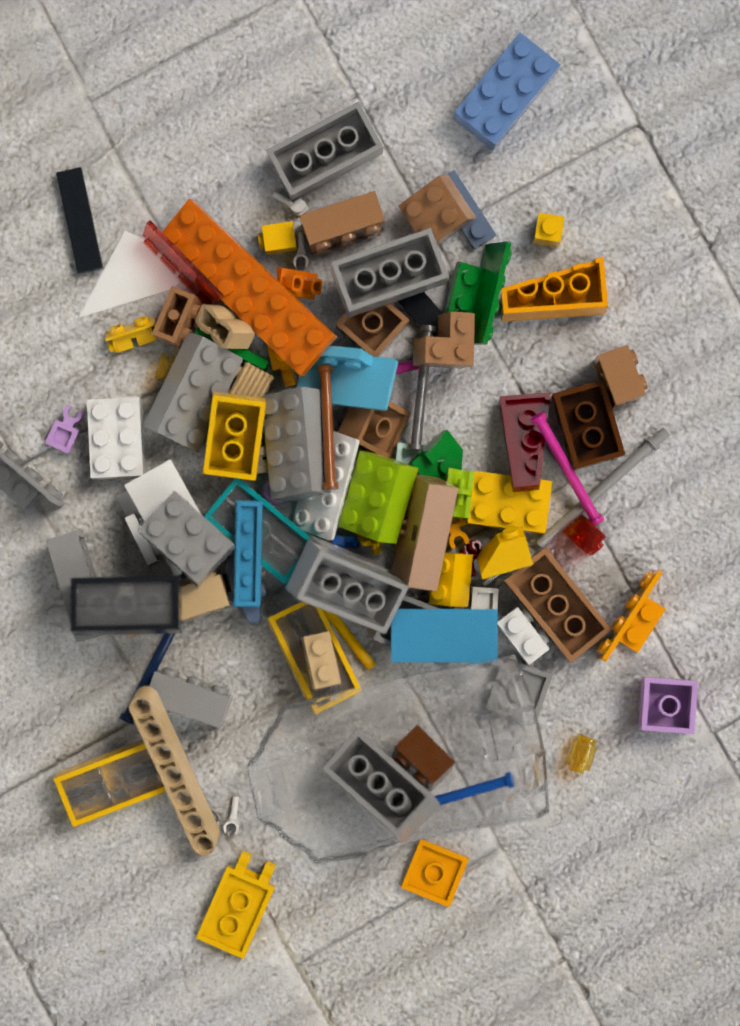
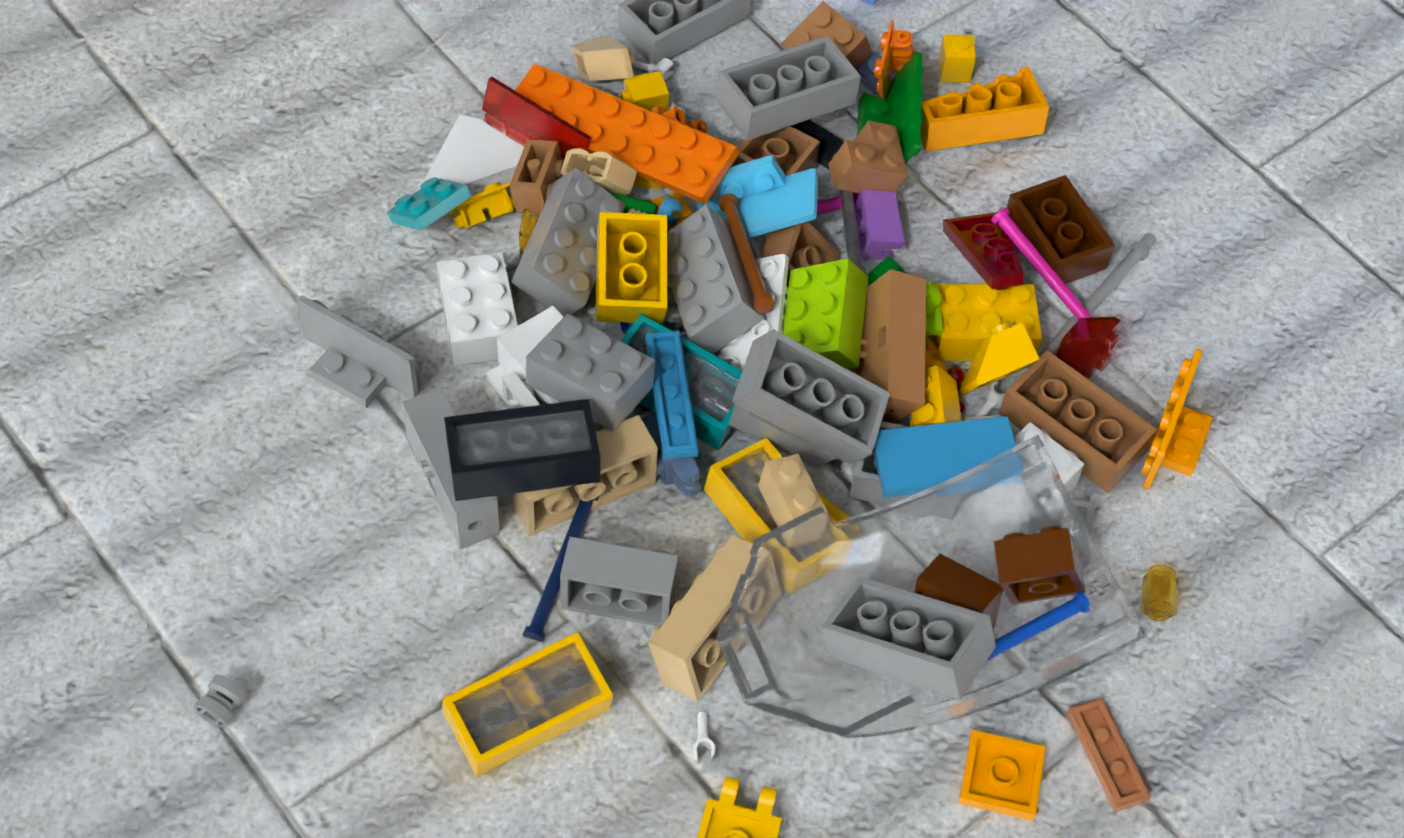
camera: 15 degrees left, 30 degrees down
(63, 434) = (410, 314): lavender plate -> none
(79, 220) = (404, 107): black tile -> none
(88, 335) = (428, 203): none -> teal plate
(175, 759) = (602, 650): tan beam -> none
(239, 743) = (686, 643): none -> tan brick
(246, 200) = (603, 59): none -> tan slope
(277, 367) = (667, 208): none -> dark azure hinge
(343, 223) = (698, 62): medium nougat brick -> none
(445, 394) = (878, 224): none -> medium lavender hinge
(482, 754) = (1039, 565): none -> reddish brown brick
(488, 231) = (897, 50): none -> orange hinge
(512, 867) = (1108, 755): none -> nougat tile
(620, 375) = (1086, 168): medium nougat brick -> none
(667, 705) = (1253, 516): lavender brick -> none

